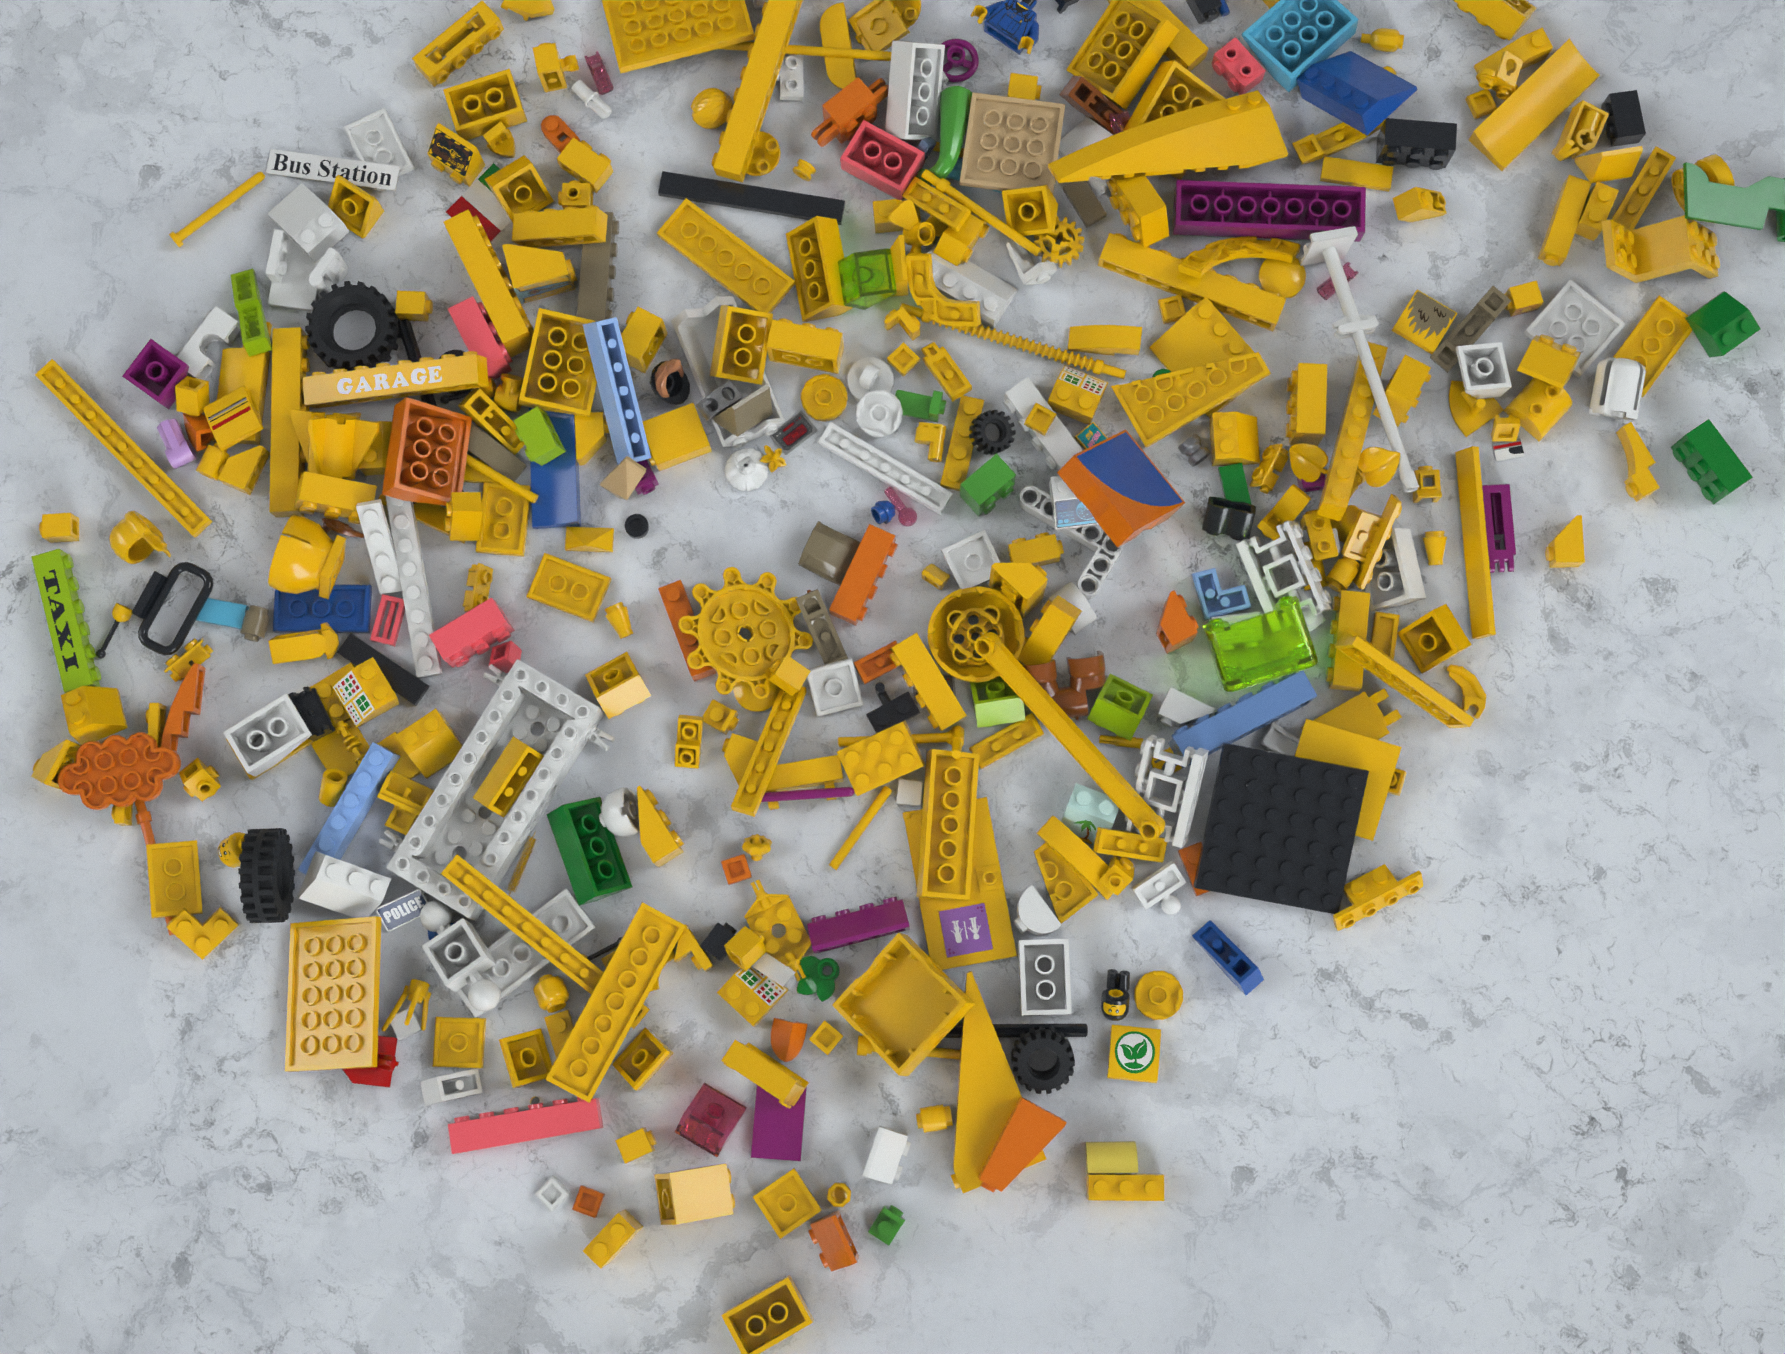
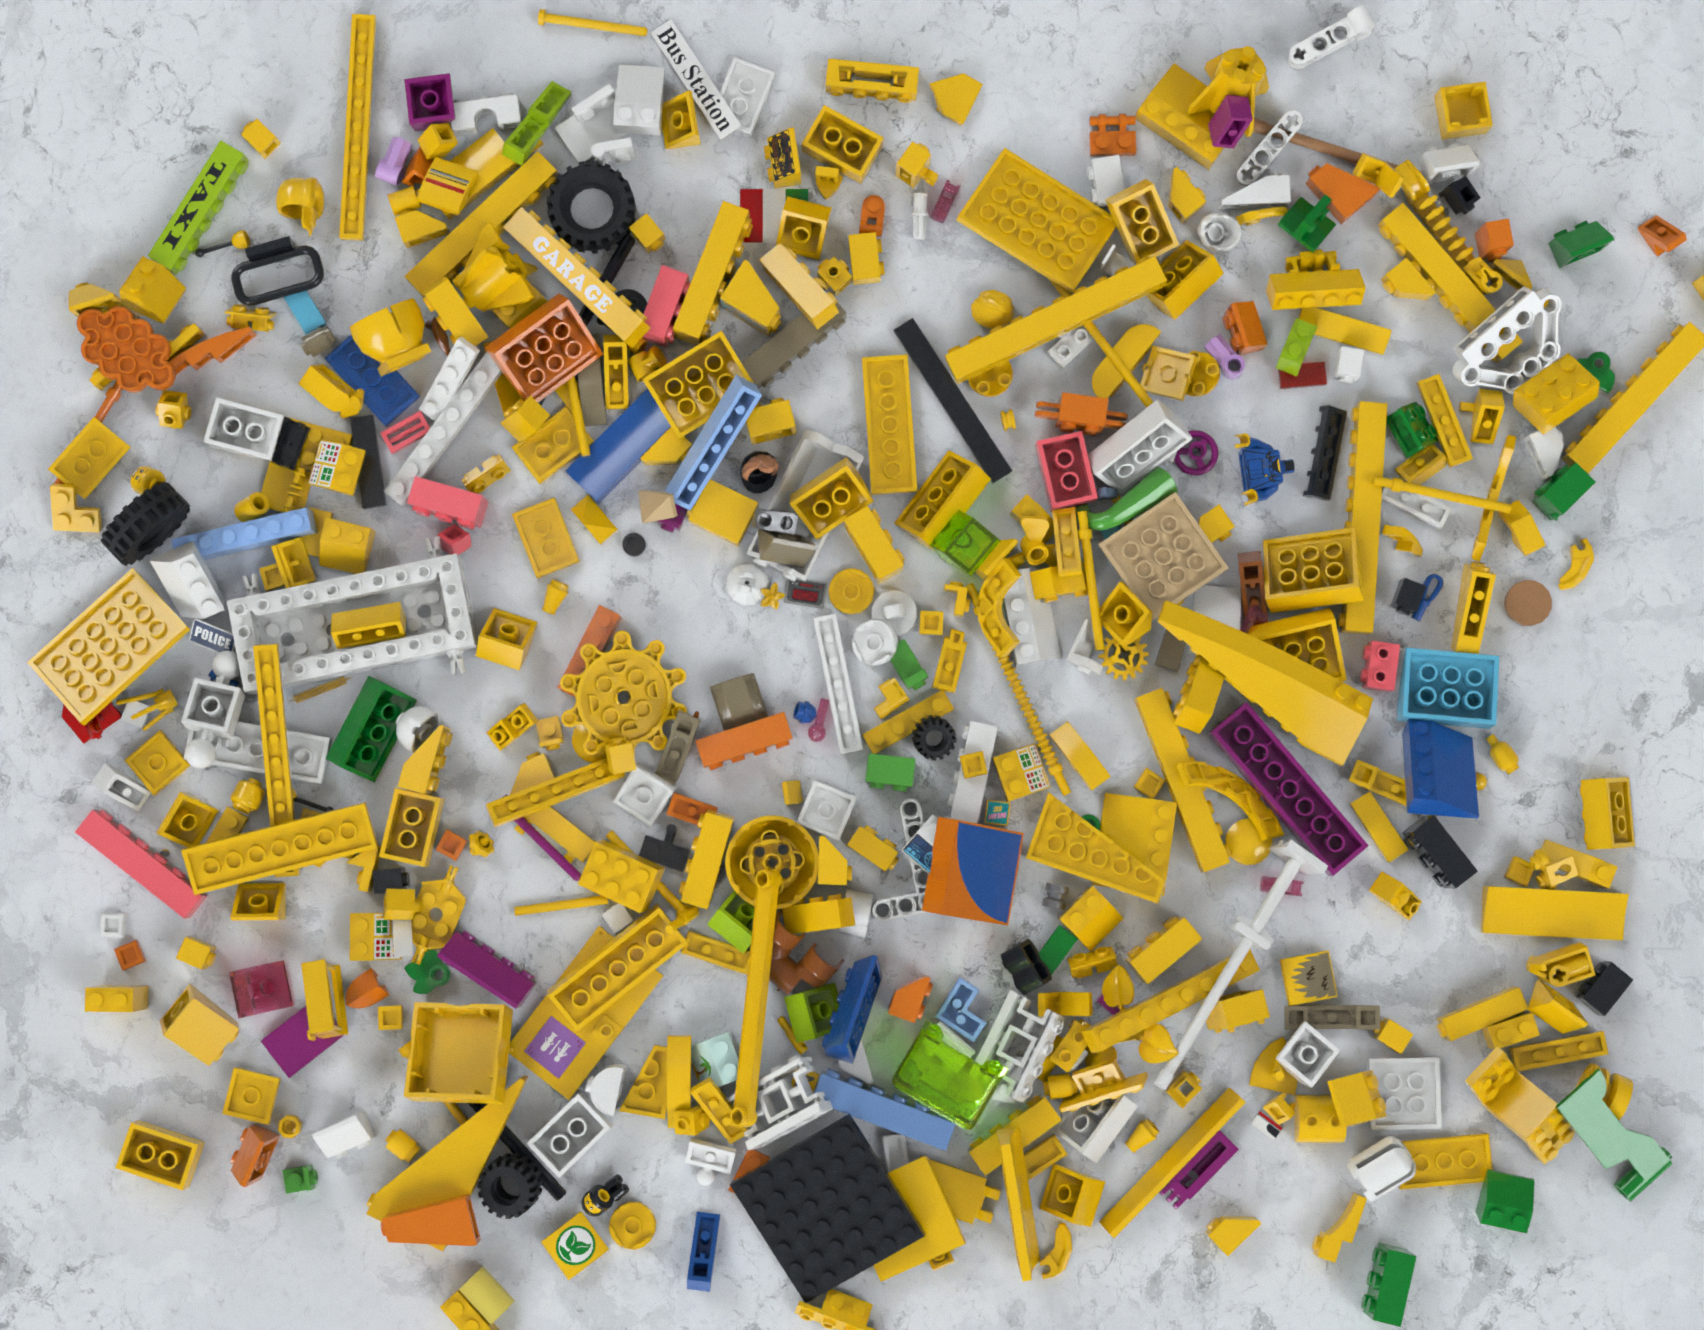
camera: 40 degrees right, 5 degrees up
(539, 436) = (632, 415): lime brick -> none
(694, 886) = (411, 827): none -> yellow brick
(1144, 671) = (853, 1009): none -> blue slope

